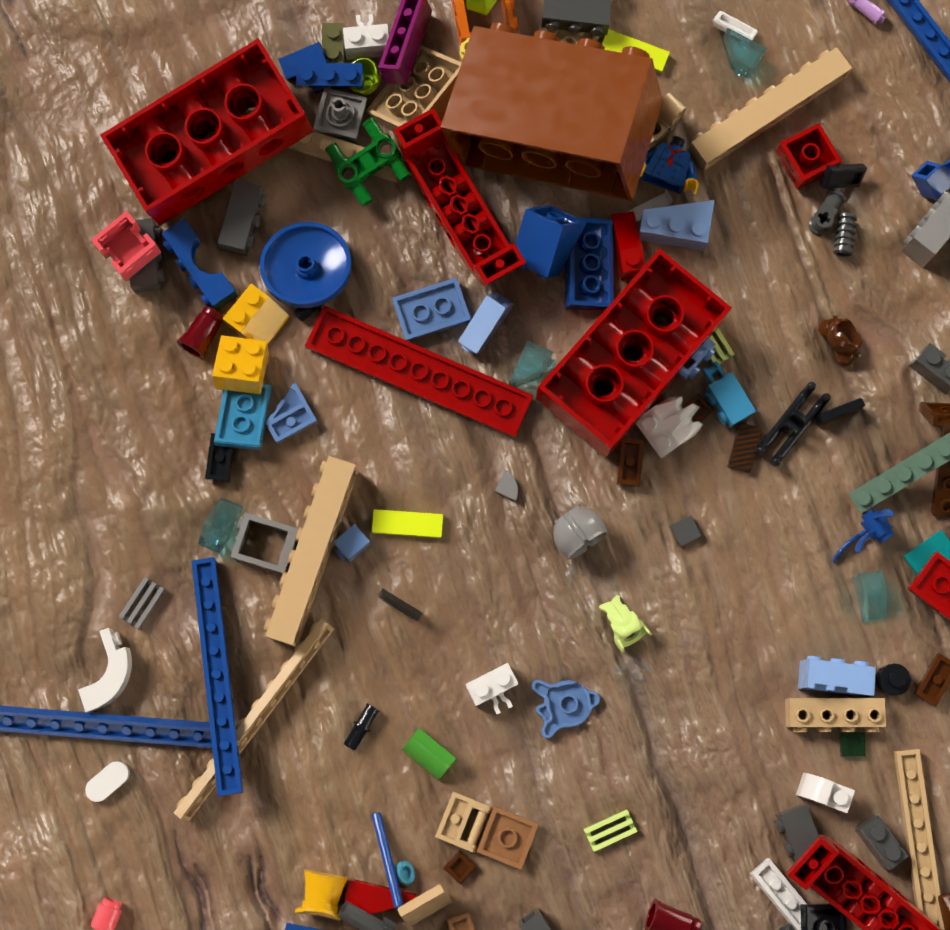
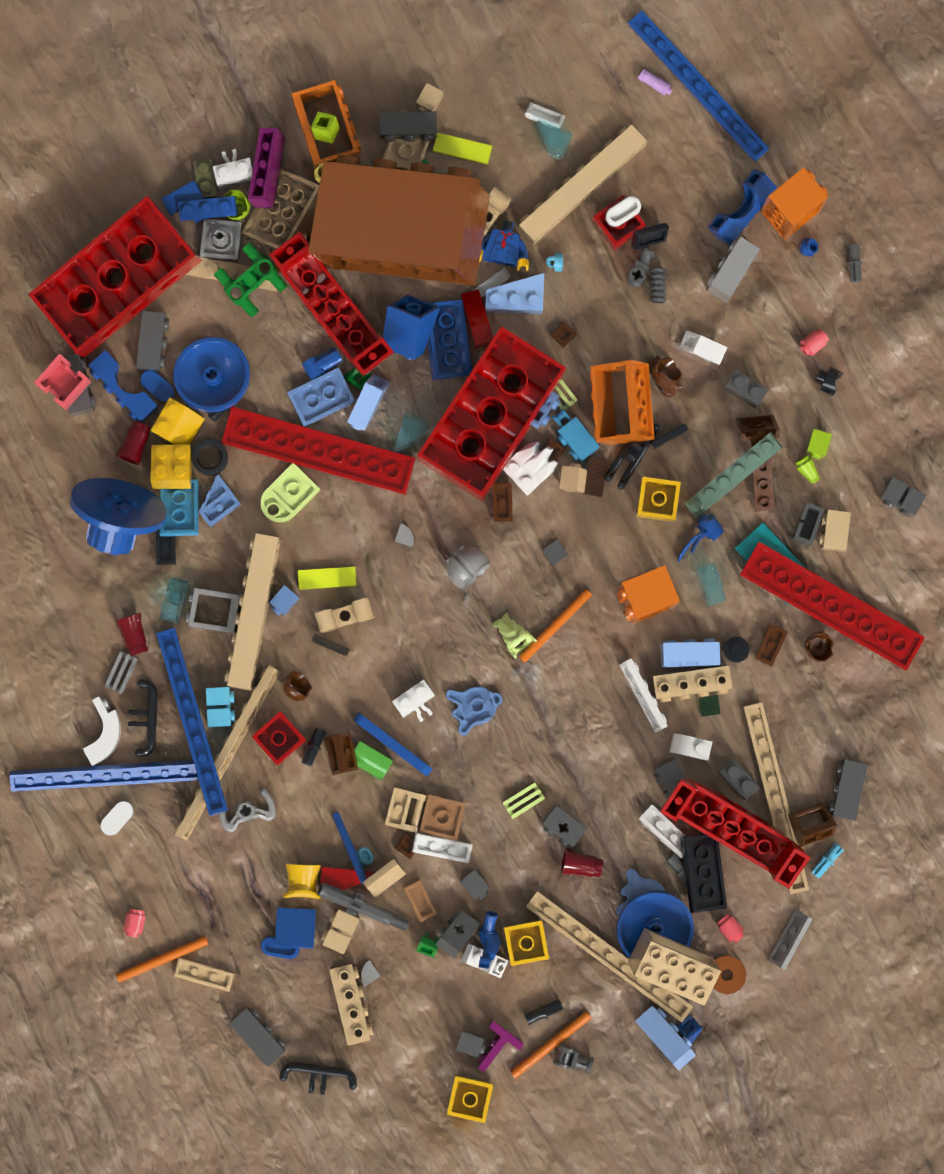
camera: 10 degrees left, 5 degrees up
(163, 409) = (116, 513): none -> blue piece
(163, 557) = (133, 634): none -> dark red plant
(169, 664) = (152, 718): none -> black piece
(239, 270) = (157, 386): none -> blue tile
(254, 661) = (219, 707): none -> medium azure piece
(268, 795) = (247, 811): none -> light grey piece
(276, 348) = (209, 471): none -> black tyre
(320, 710) = (279, 738): none -> red brick
(351, 649) = (296, 686): none -> reddish brown hair
(377, 417) = (288, 492): none -> yellowish green tile
(394, 740) = (344, 753): none -> reddish brown tile
(404, 573) = (331, 619): none -> tan beam
(434, 272) = (319, 365): none -> blue piece
(458, 737) = (392, 744): none -> blue beam
(476, 292) = (356, 378): none -> green slope
(501, 876) = (442, 848): none -> white tile
(651, 857) = (557, 817): none -> dark grey brick
(675, 619) = (555, 625): none -> orange piece
(719, 445) = (573, 478): none -> tan brick
(726, 276) = (563, 334): none -> reddish brown tile
(731, 192) = (558, 262): none -> medium azure tile
(773, 719) = (640, 689): none -> white plate
(798, 596) = (647, 595): none -> orange hose
(812, 363) = (638, 402): none -> orange hose
(817, 140) = (623, 211): none -> white tile
(819, 484) = (658, 499): none -> yellow brick
(893, 313) = (703, 347): none -> white slope

